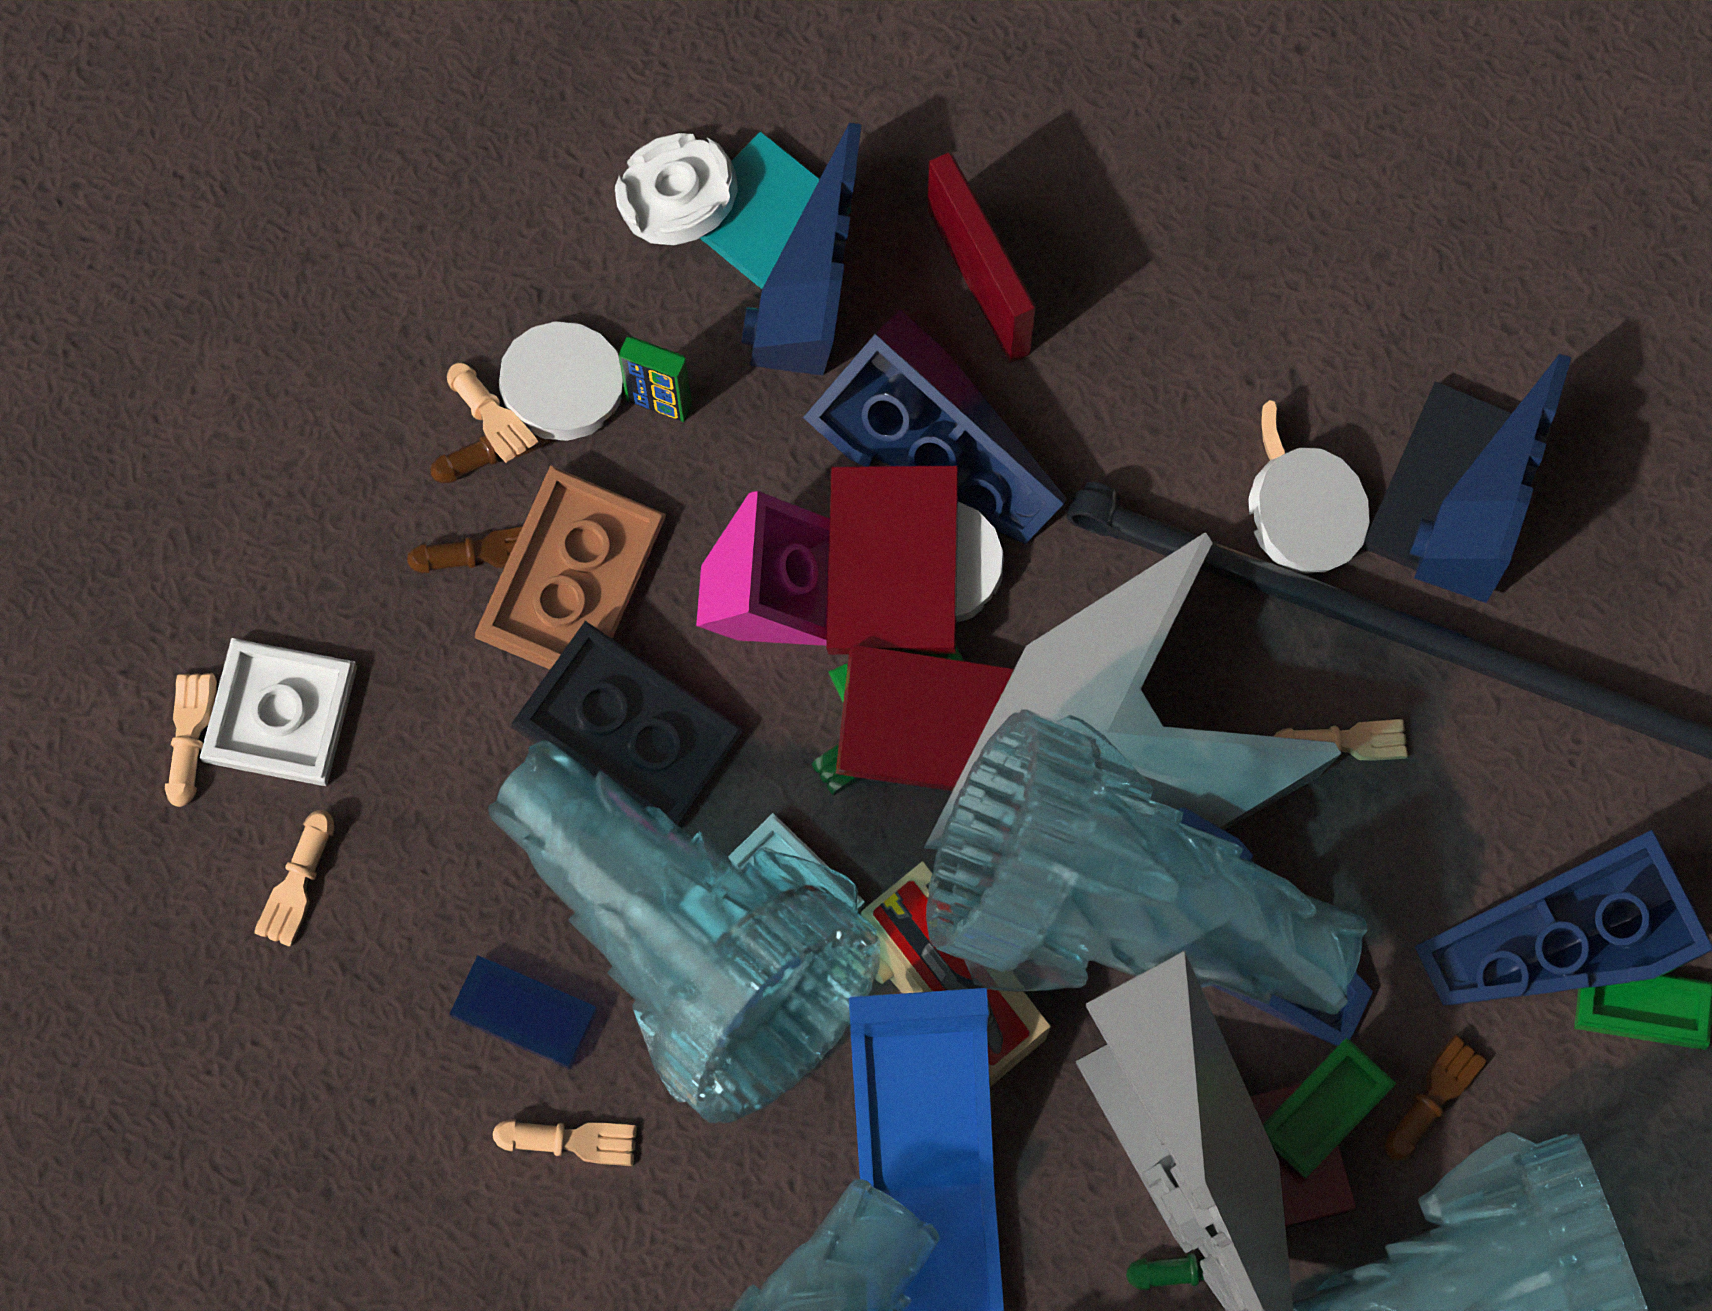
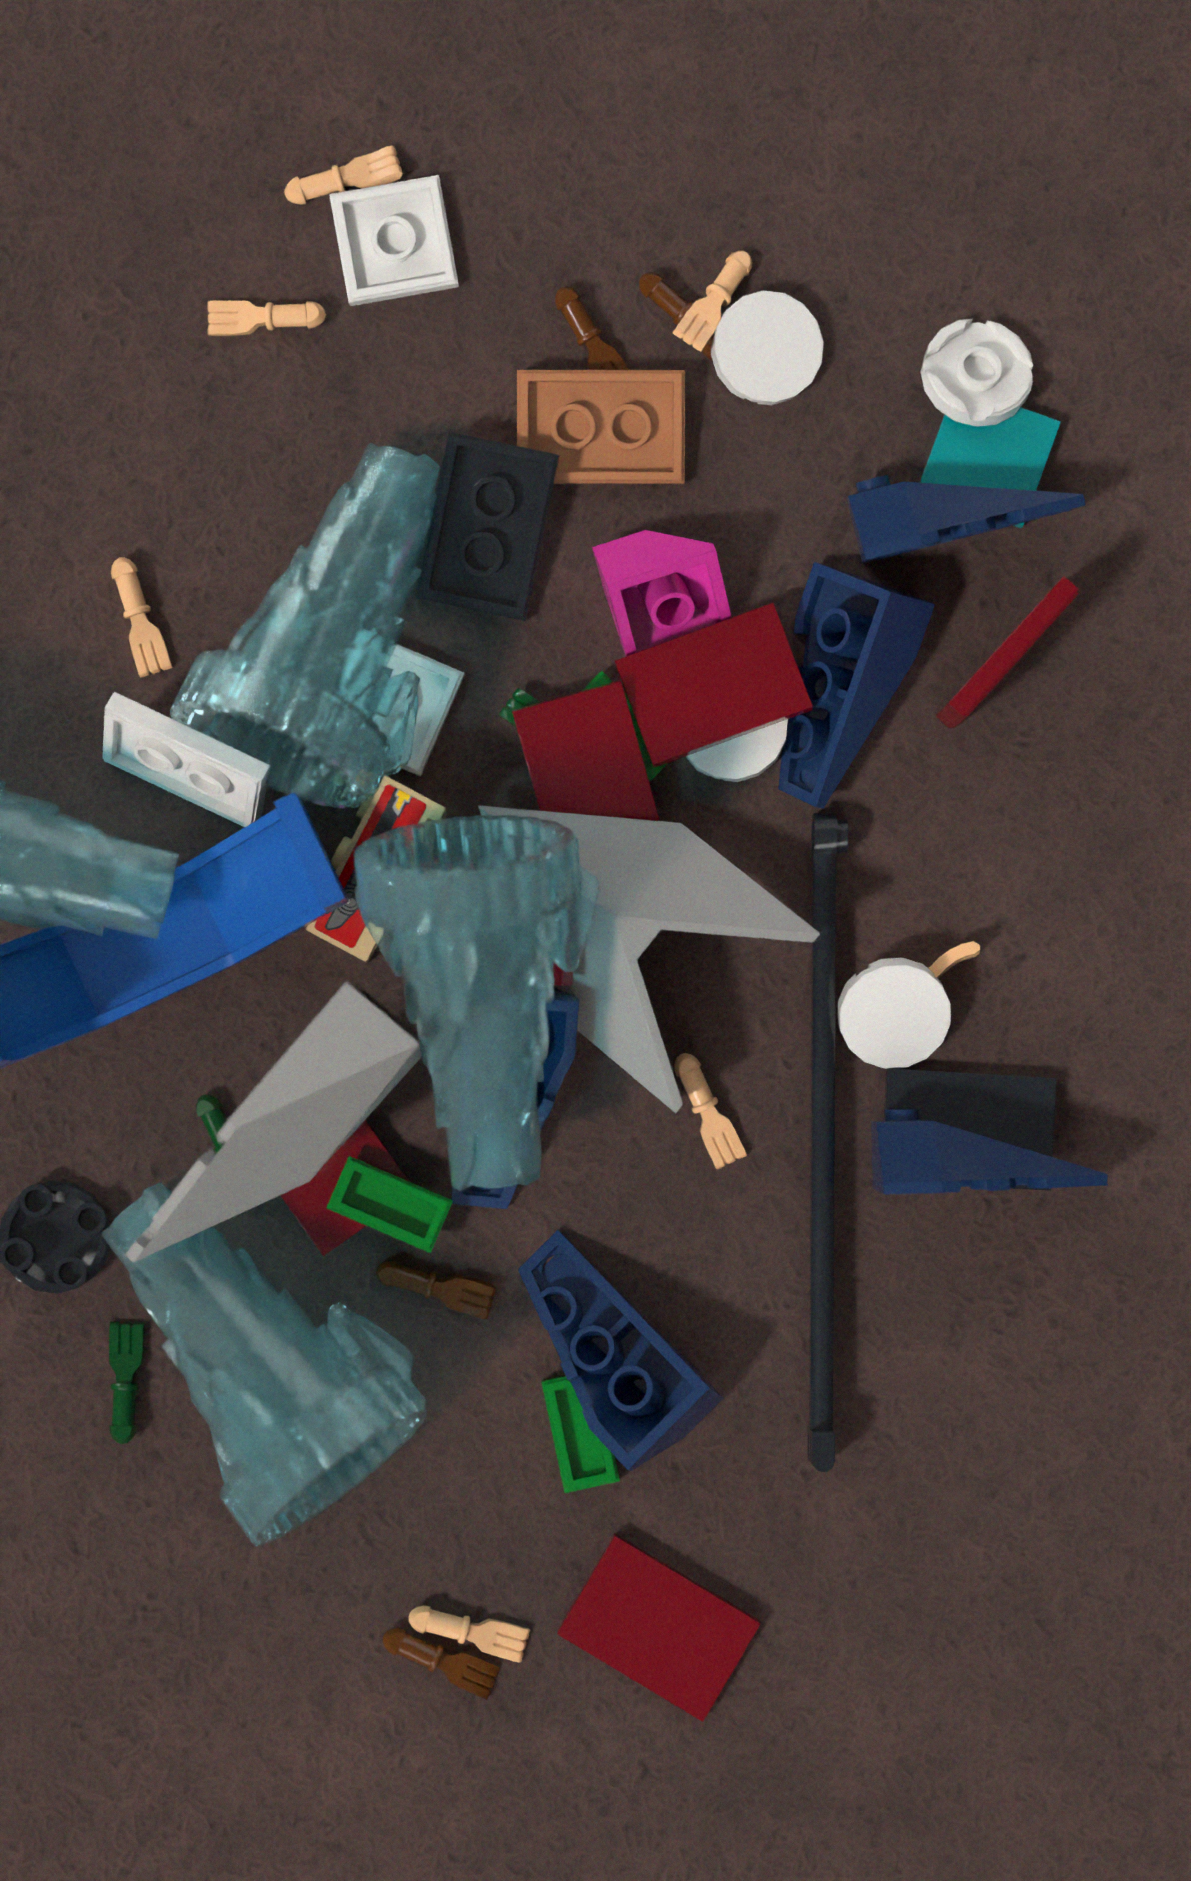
camera: 60 degrees right, 15 degrees up
(523, 1012) = (226, 541): clear blue tile -> none
(655, 378) = (789, 425): tile -> none
(751, 1138) = (184, 761): none -> white tile

